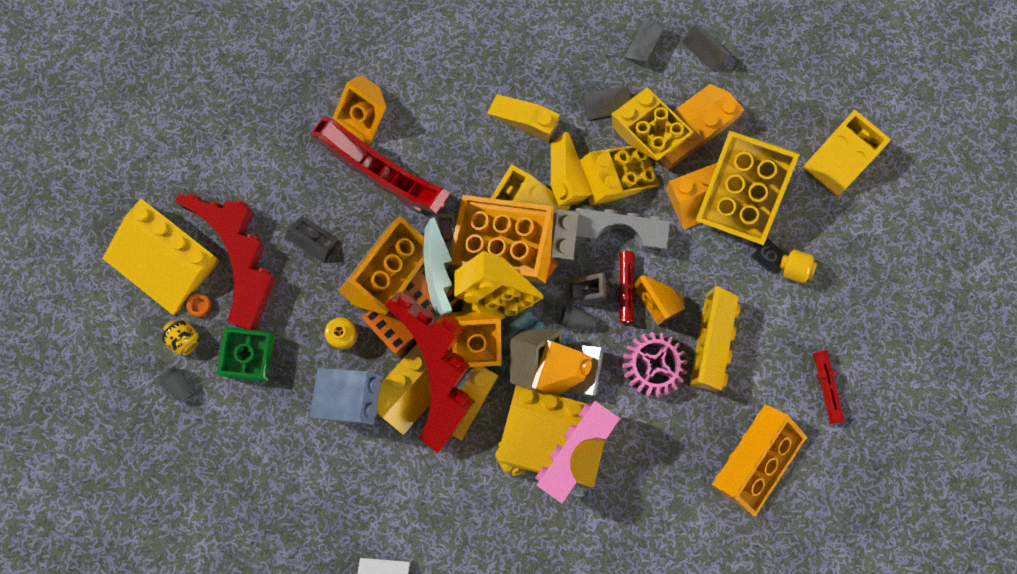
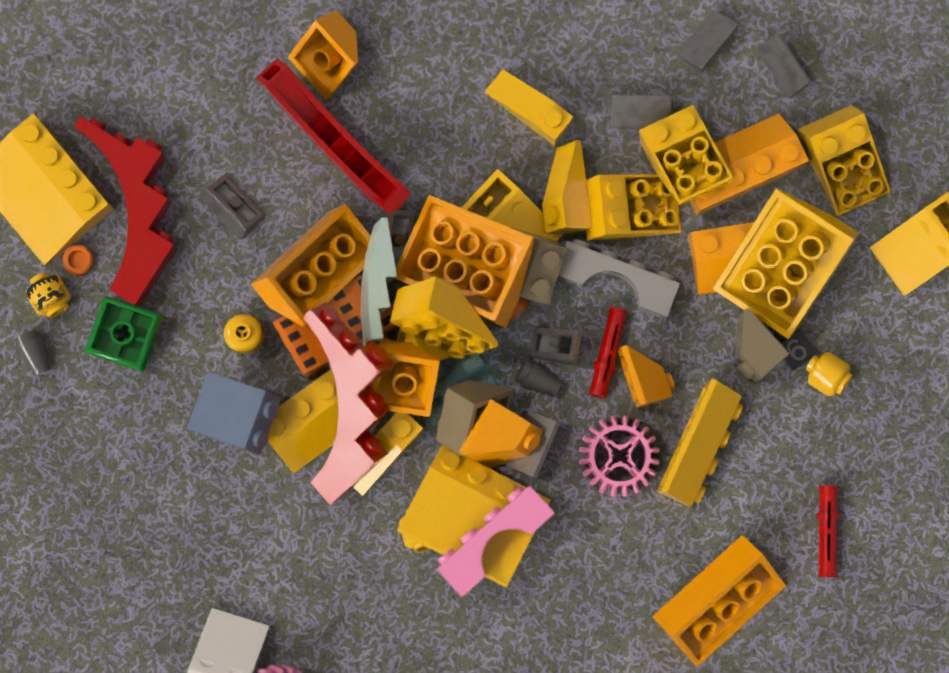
camera: 20 degrees right, 5 degrees up
(739, 257) = (755, 348): none -> dark tan slope
(769, 104) = (845, 159): none -> yellow slope

